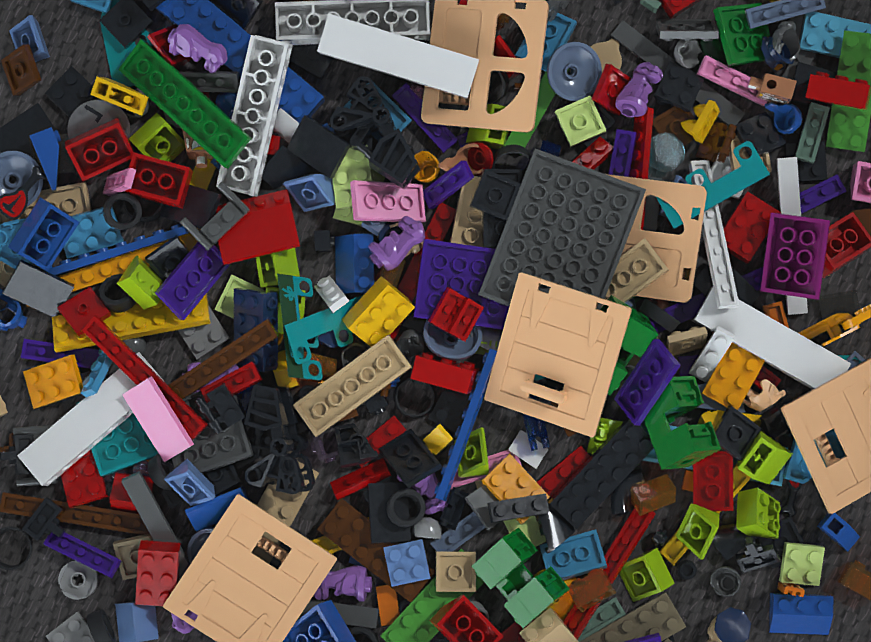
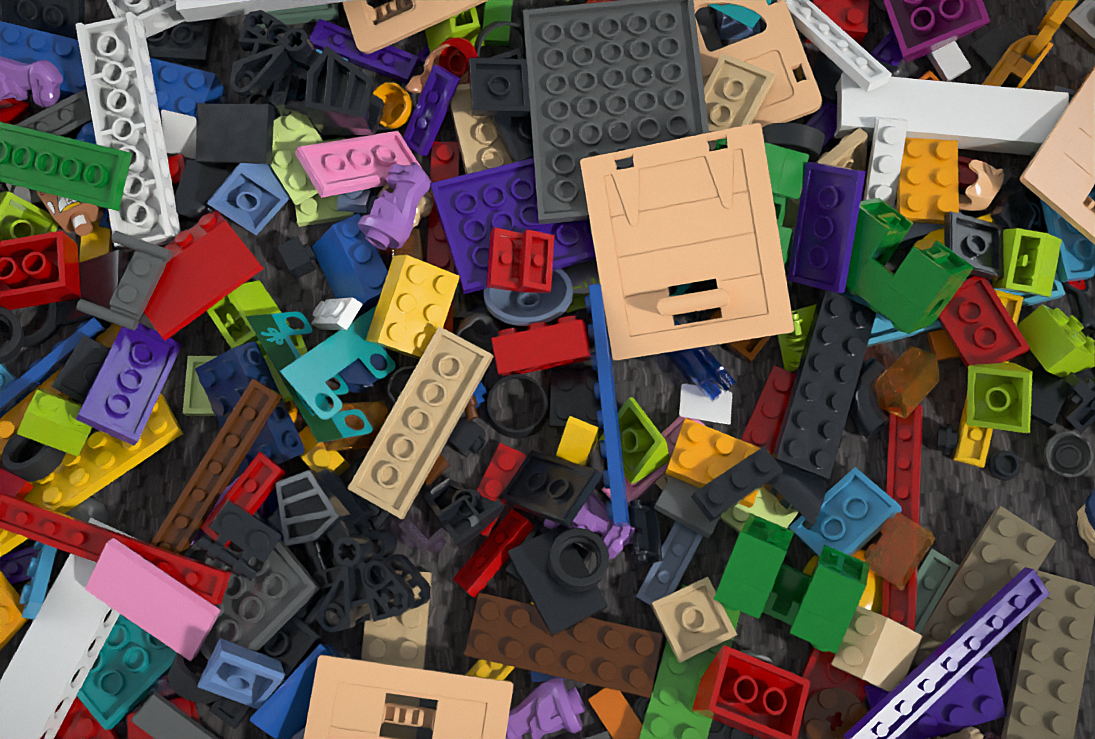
camera: 25 degrees left, 10 degrees down
(205, 337) = (180, 457): light grey plate -> none
(406, 562) = (617, 640): medium blue plate -> none
(418, 89) = (338, 18): clear pink tile -> none
(427, 528) = (622, 576): light grey hair -> none
(646, 575) = (956, 498): lime slope -> none

